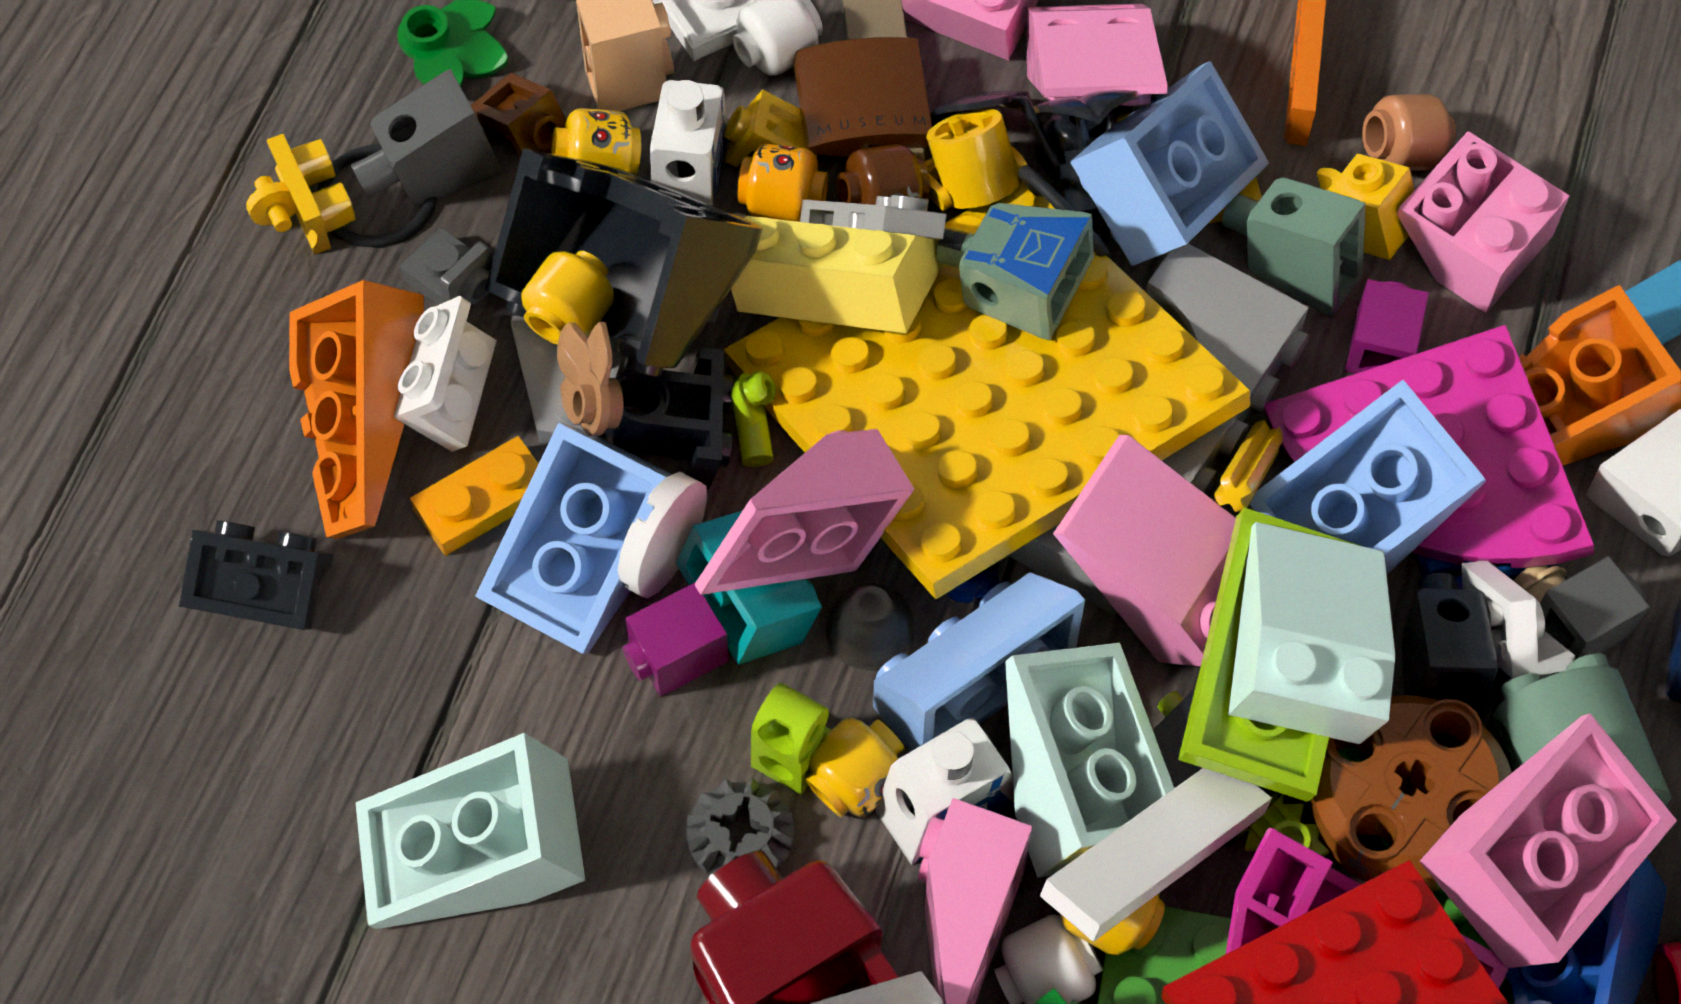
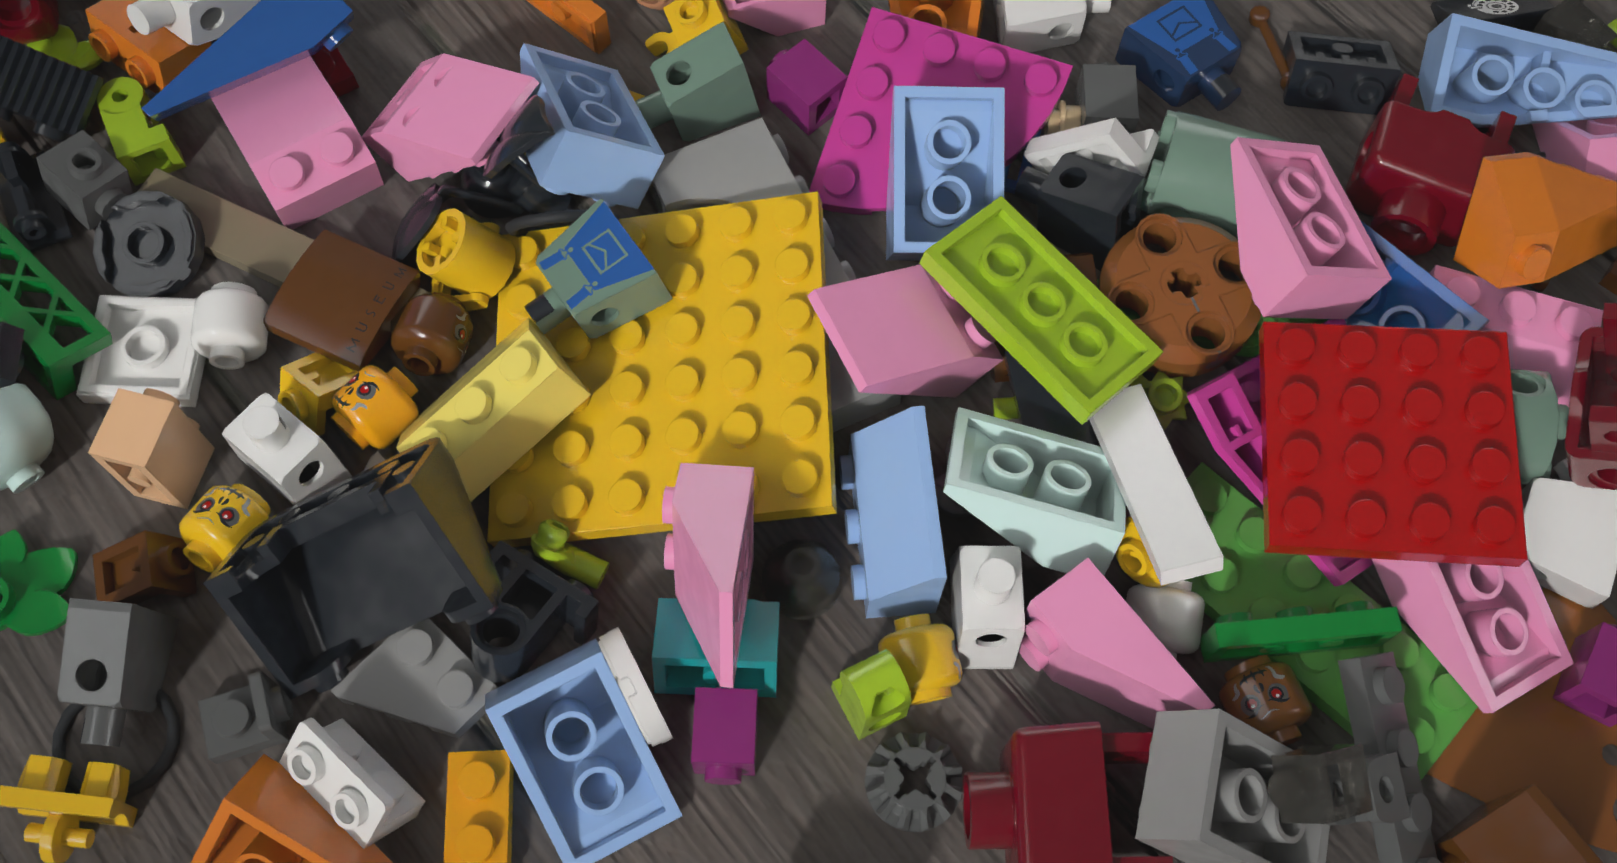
camera: 60 degrees left, 5 degrees up
(567, 291) = (362, 633): yellow head -> none
(587, 389) = (461, 661): medium nougat plate -> none
(889, 214) = (476, 348): light grey wing -> none
(1249, 466) = (869, 235): yellow axle -> none
(1314, 636) = (1056, 269): light aqua slope -> none

